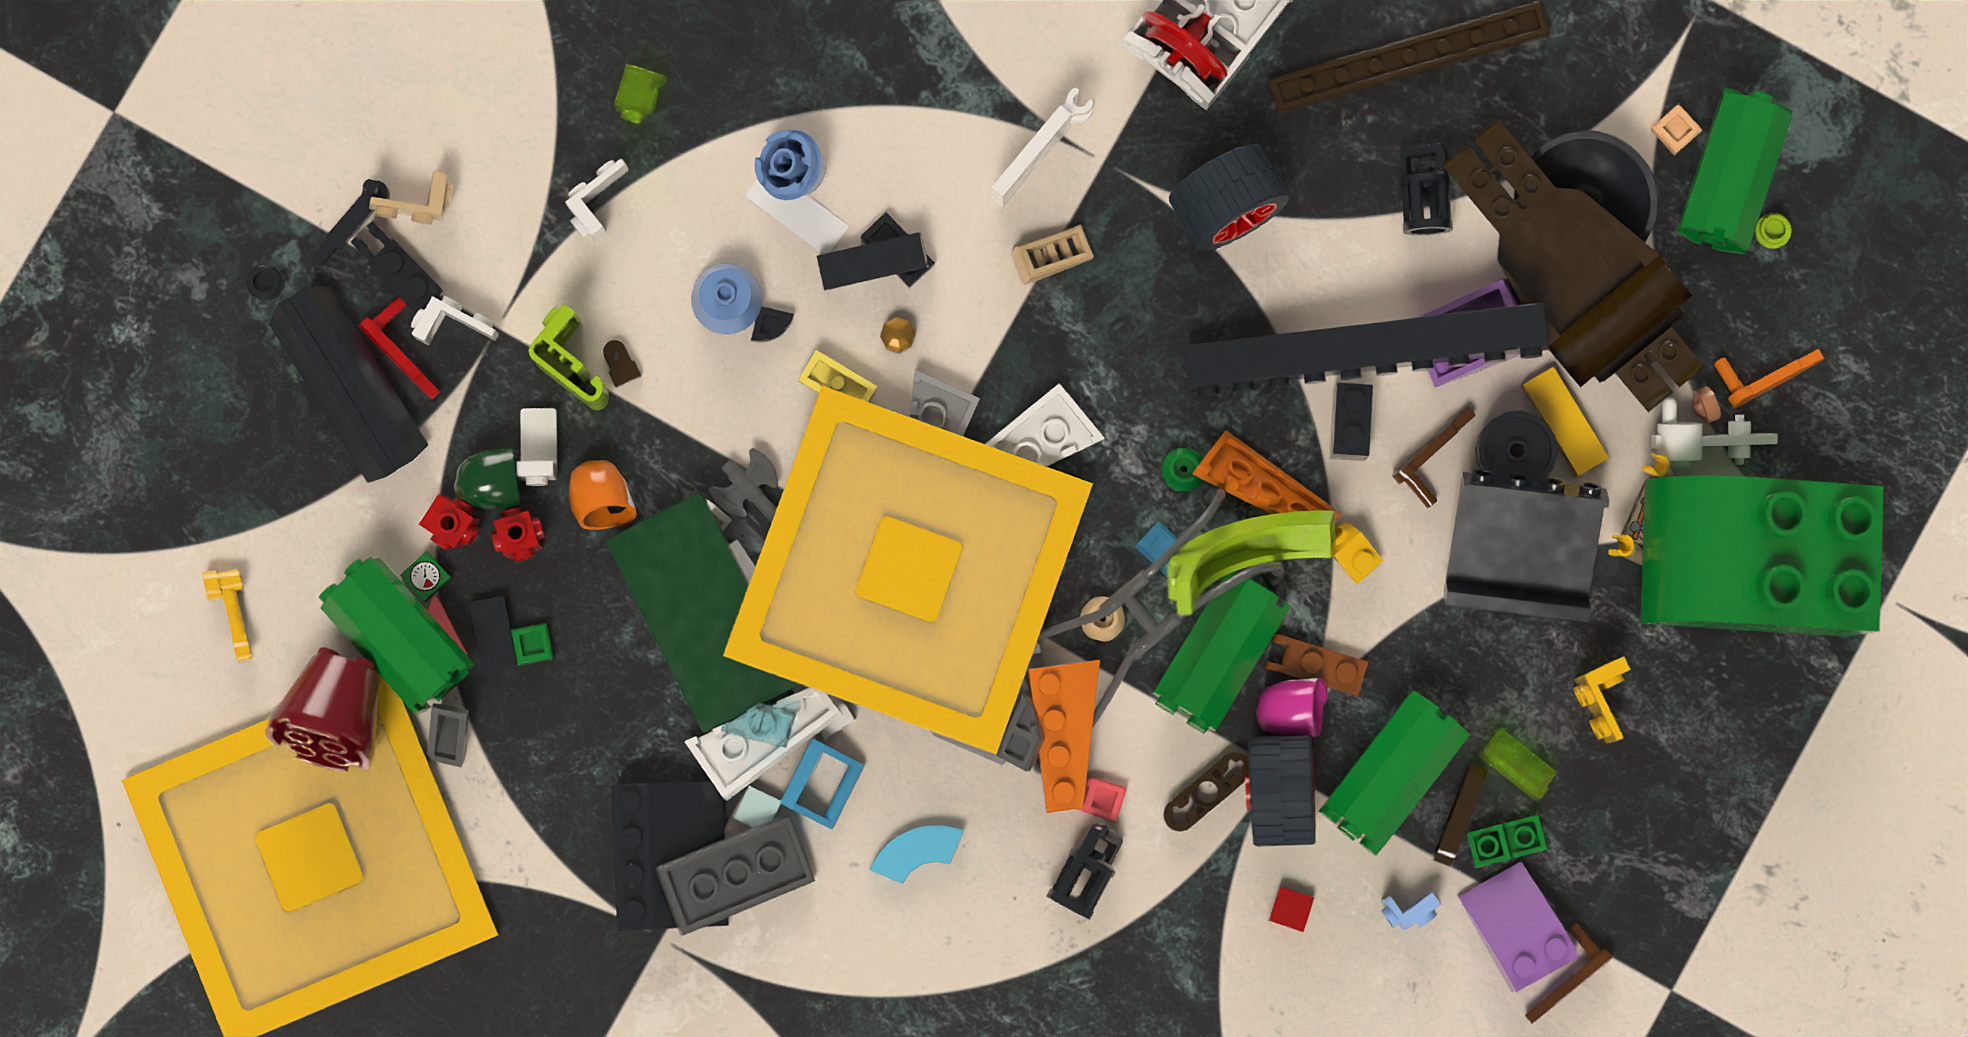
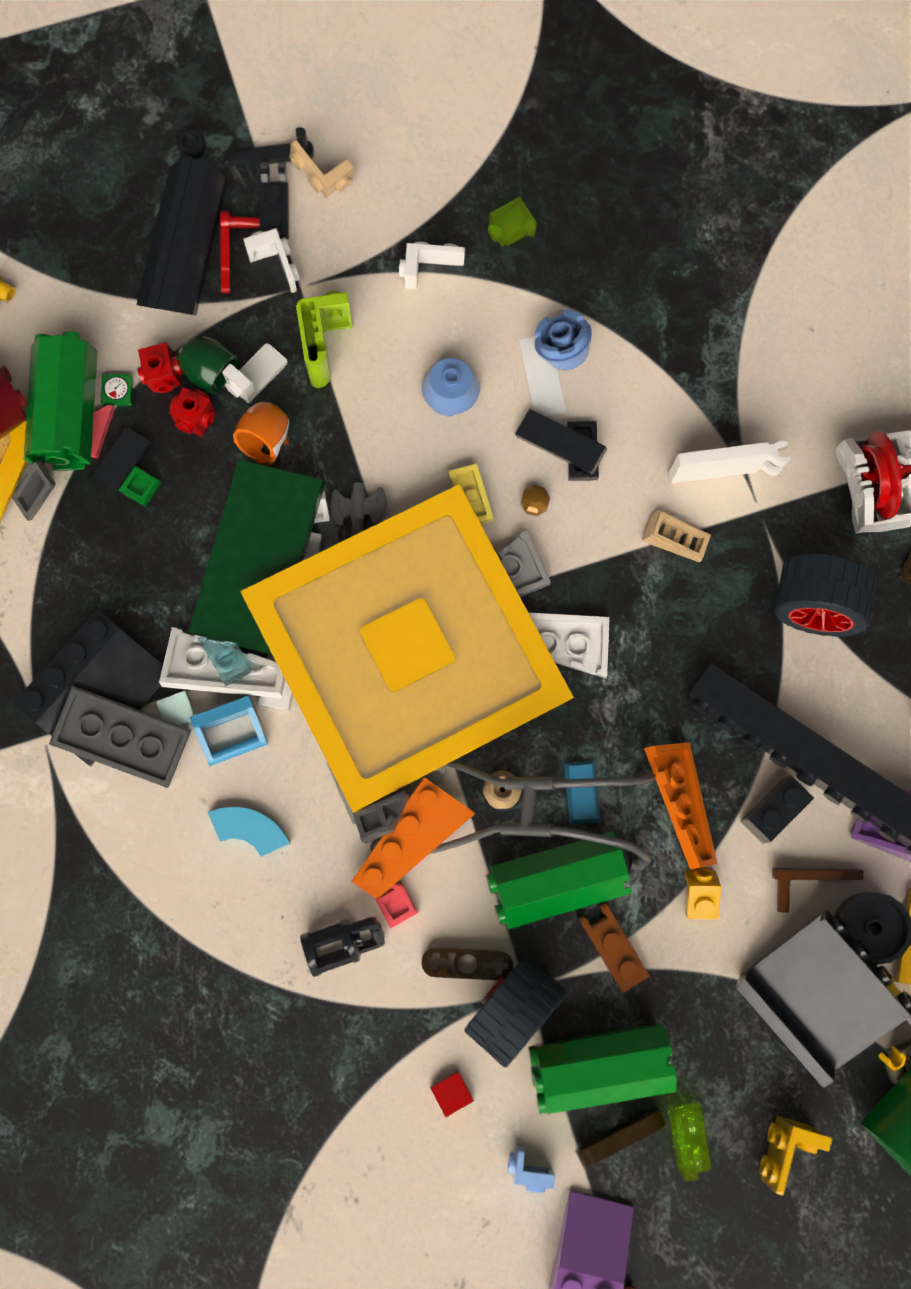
camera: 40 degrees right, 5 degrees down
(623, 369) = (351, 375): dark brown piece -> none
(770, 325) = (463, 426): black tile -> none
(1171, 469) = (632, 735): green plate -> none
(1244, 545) = (636, 823): lime arch -> none
(1292, 708) = (572, 961): dark pink piece -> none
(1507, 841) = (636, 1184): green slope -> none

